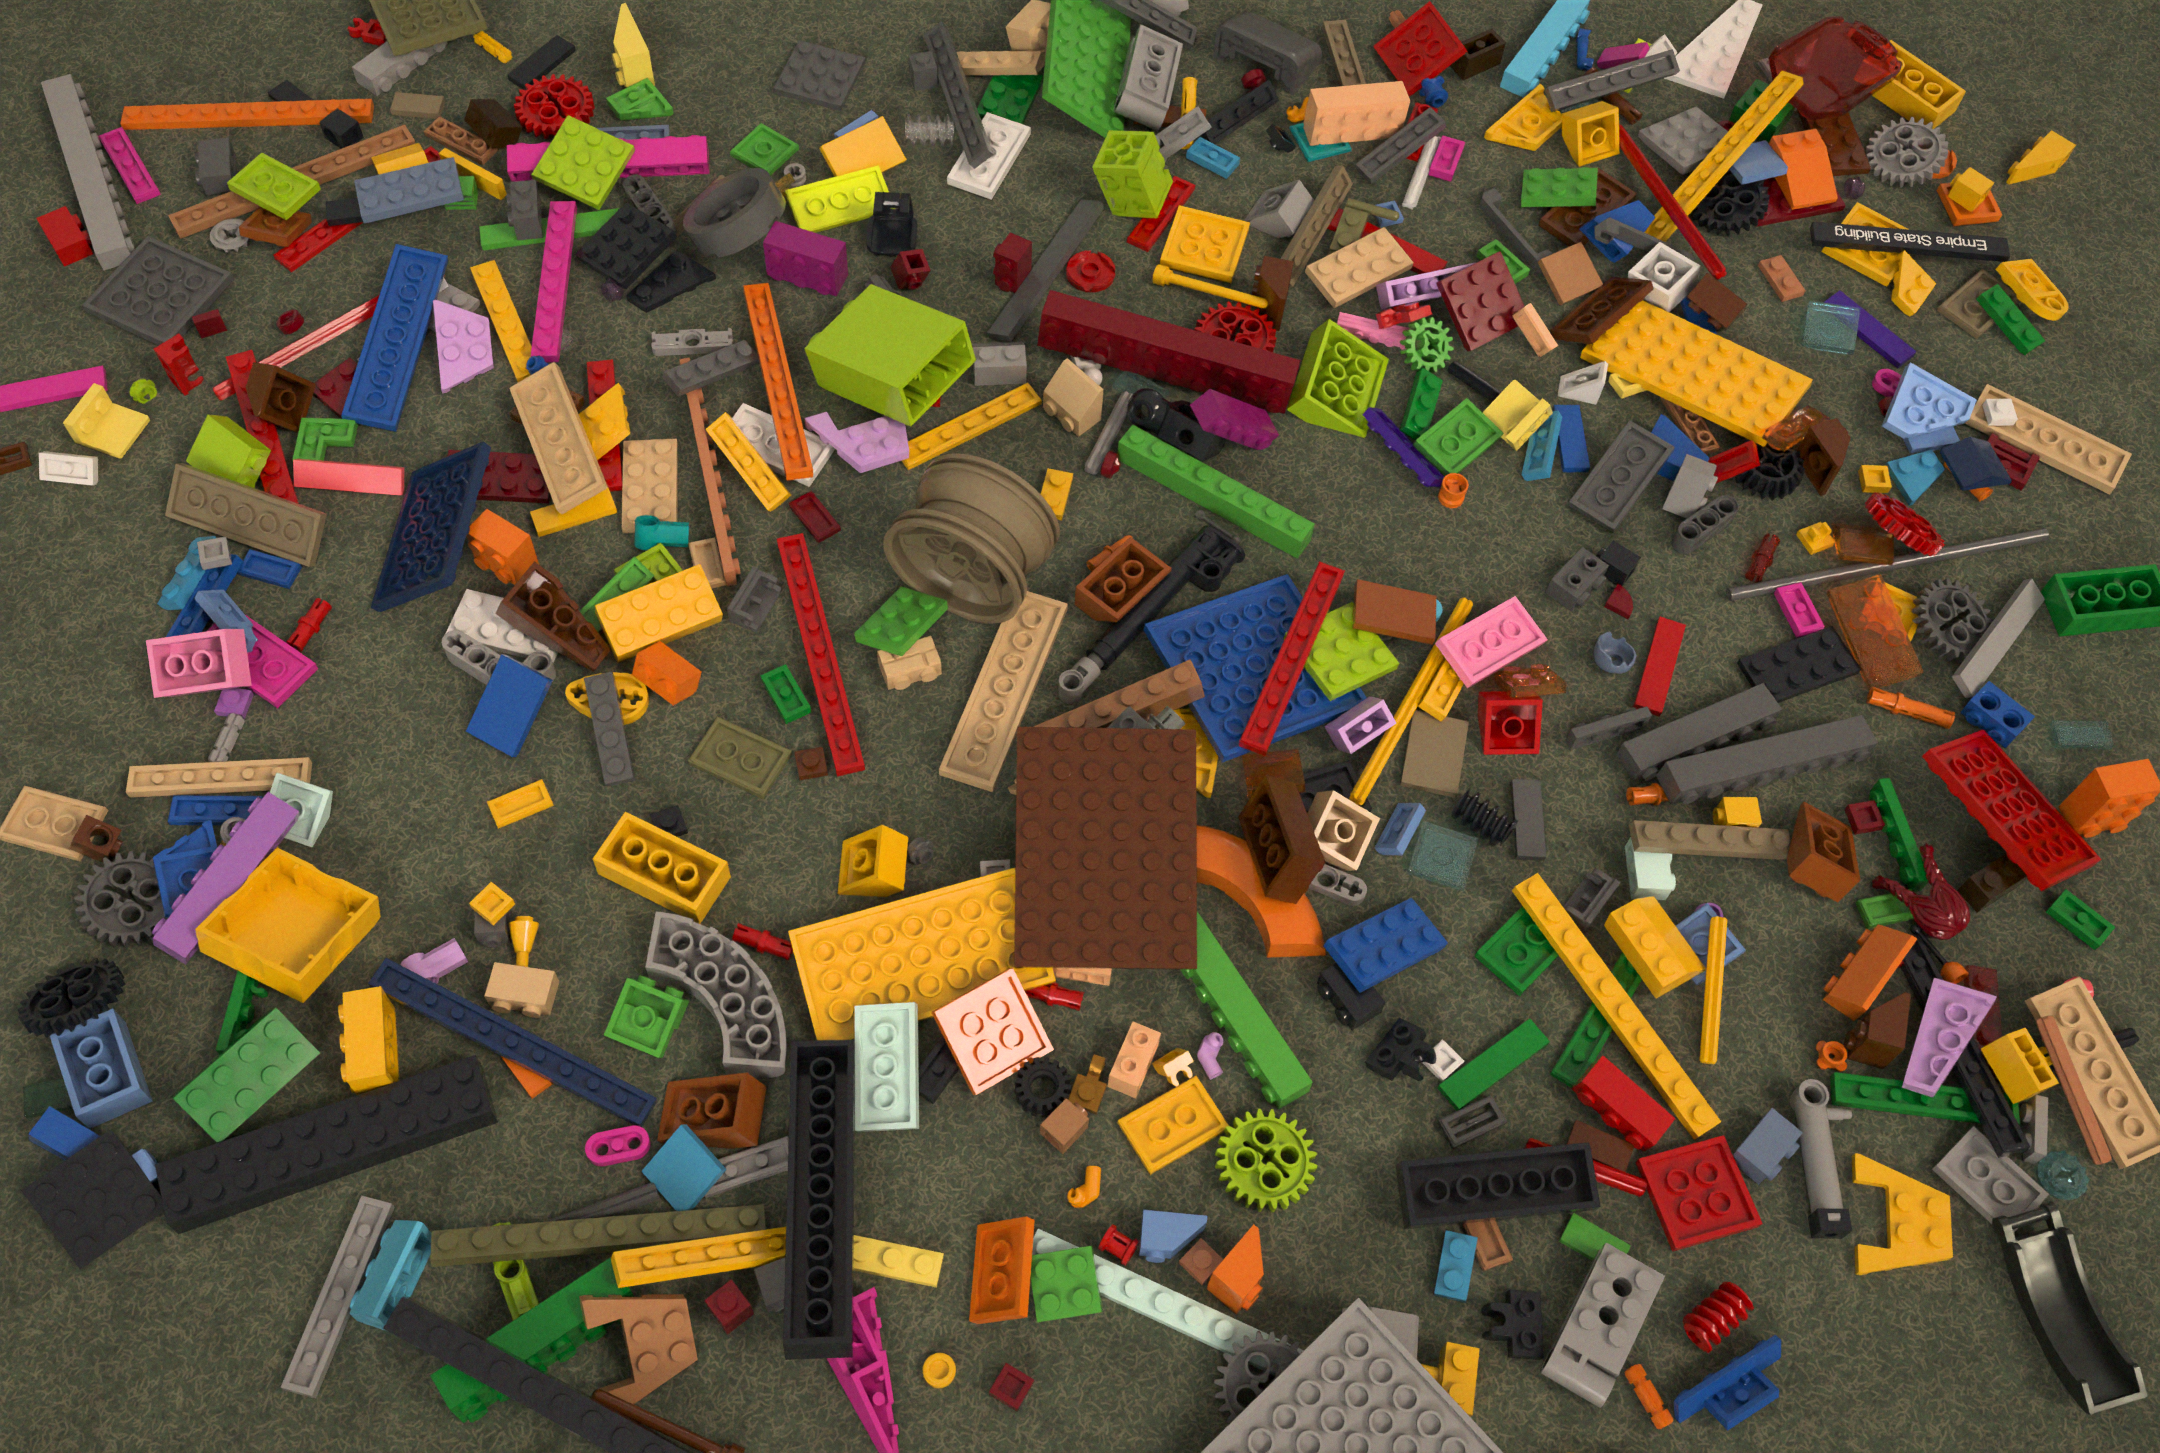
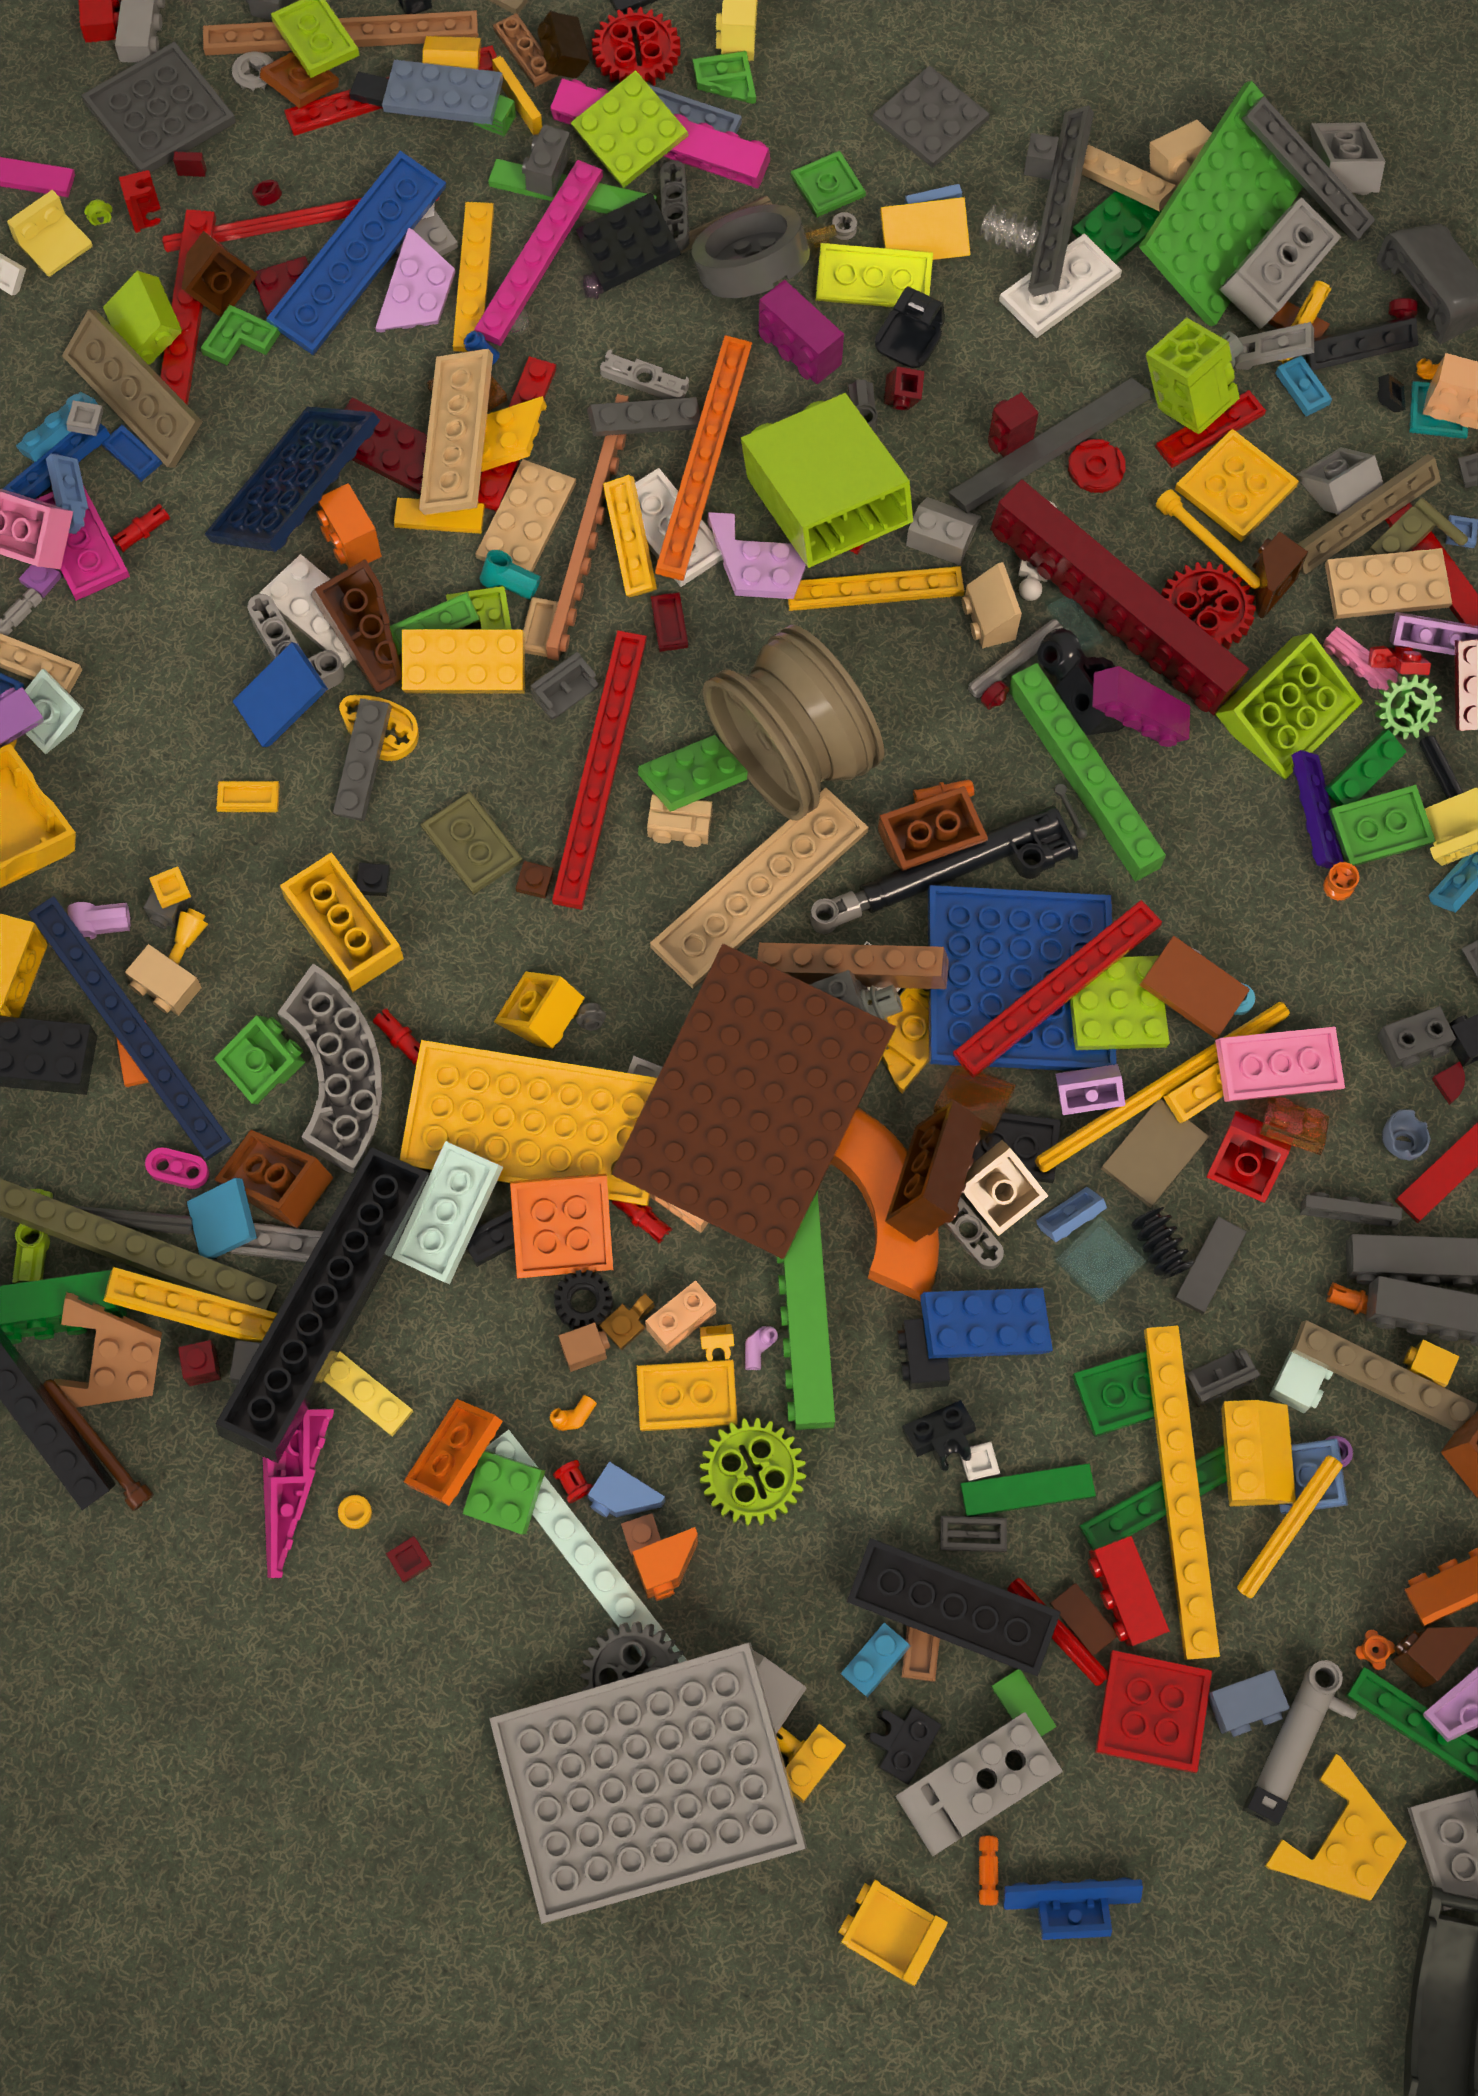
camera: 30 degrees right, 10 degrees up
(348, 476) = (245, 387): coral tile -> none
(666, 673) = (441, 726): orange brick -> none
(670, 279) = (656, 297): black wing -> none
(785, 694) = (545, 798): green plate -> none
(1056, 490) = (922, 702): yellow plate -> none
(1716, 1314) = (1096, 1832): red piece -> none

